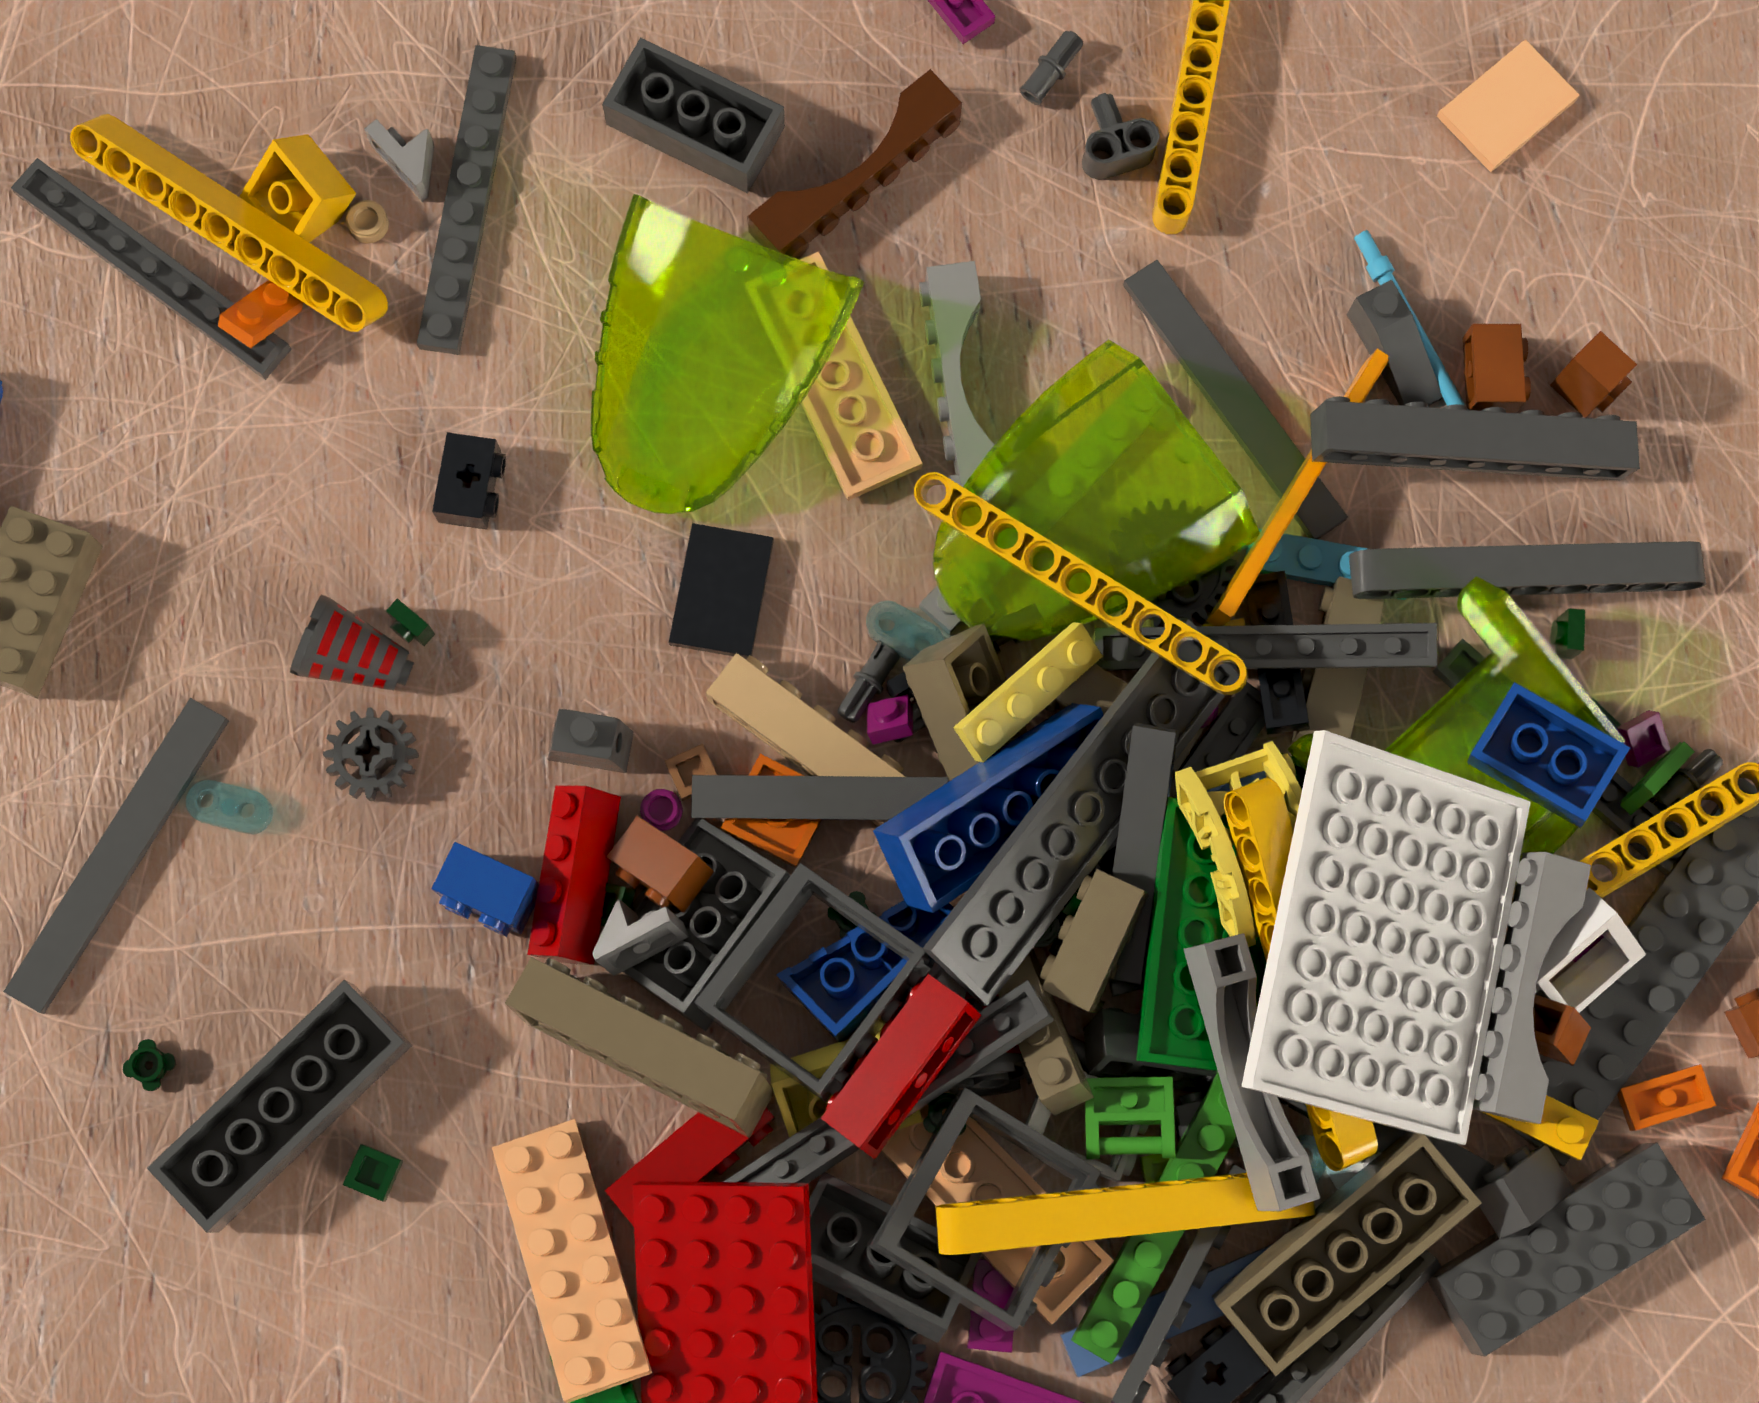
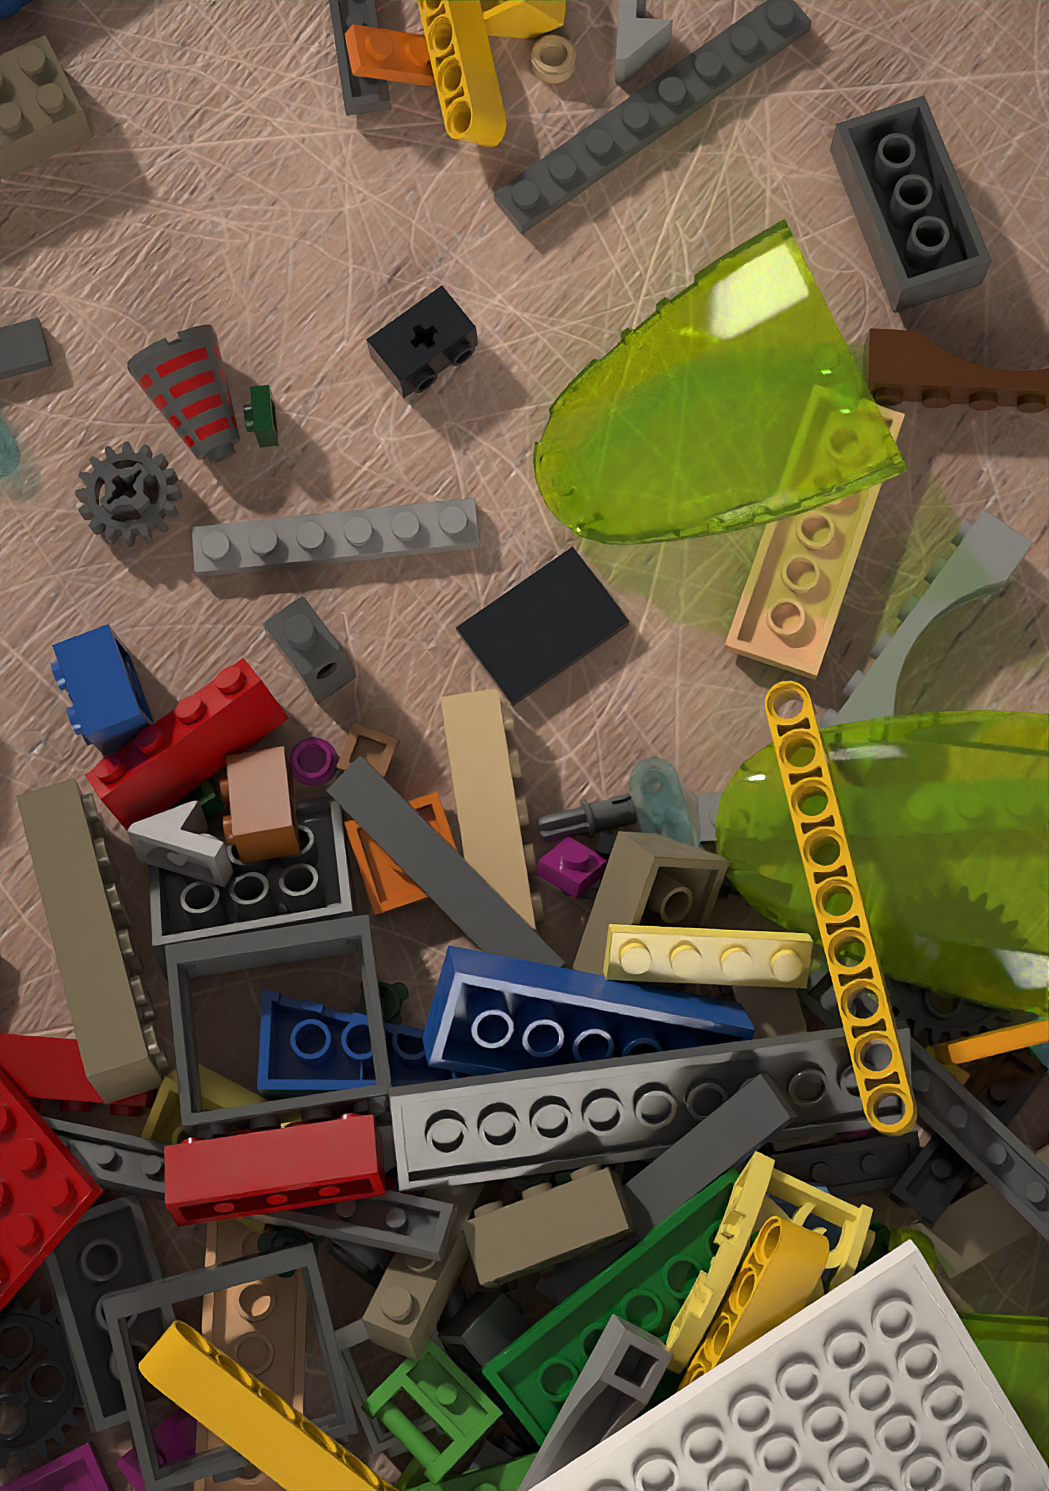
camera: 55 degrees right, 0 degrees up
(532, 658) = (335, 537): none -> light grey plate

